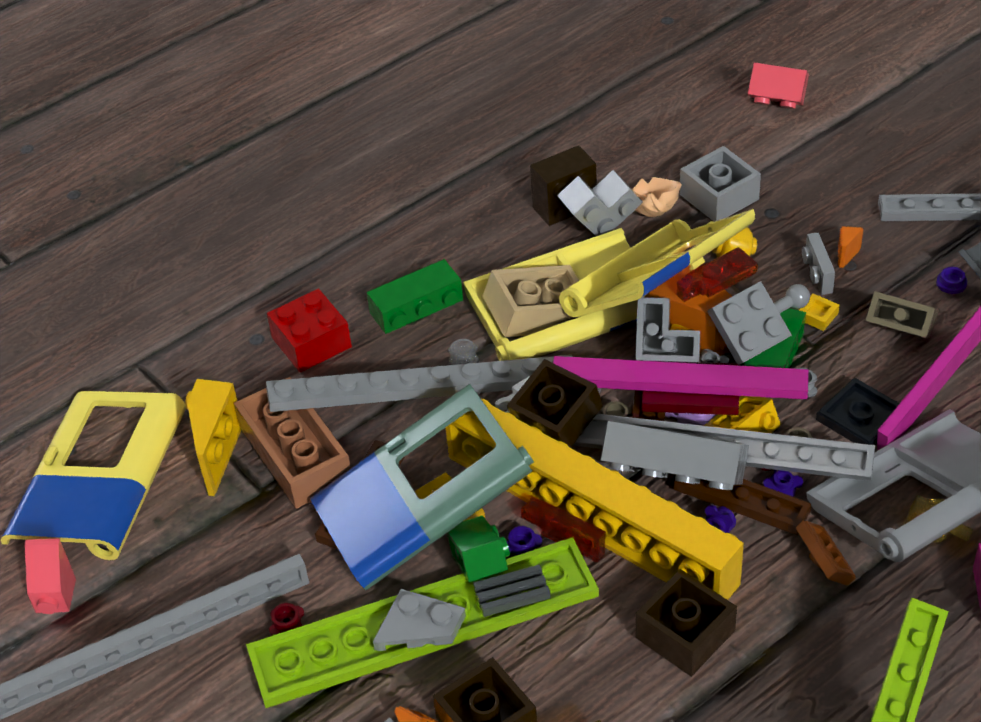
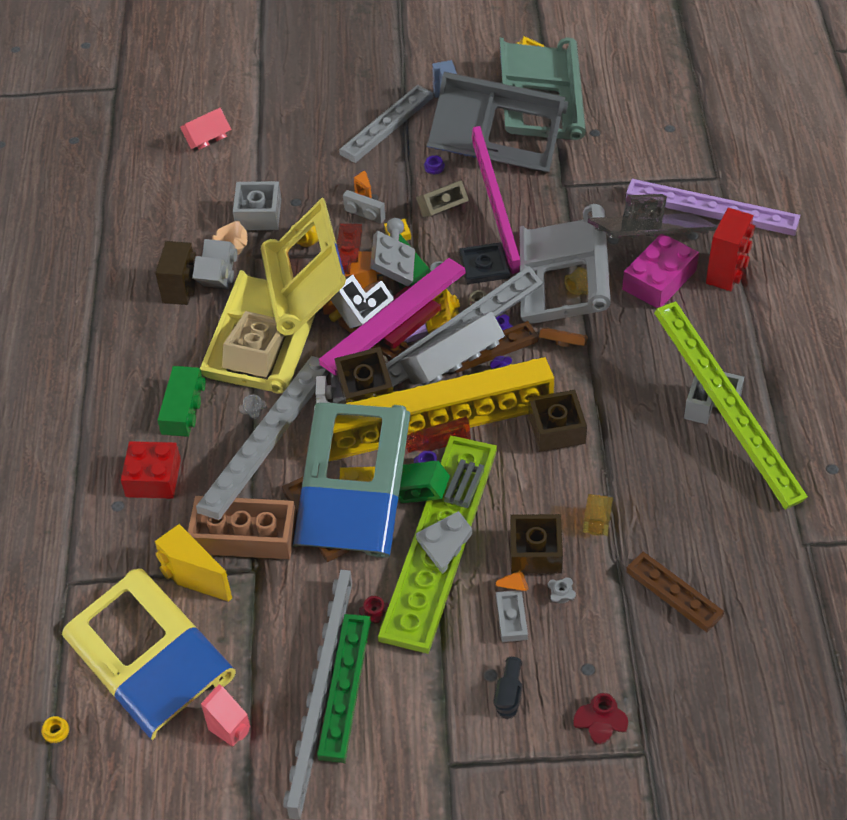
camera: 55 degrees left, 5 degrees up
(163, 658) = (344, 689): none -> green plate

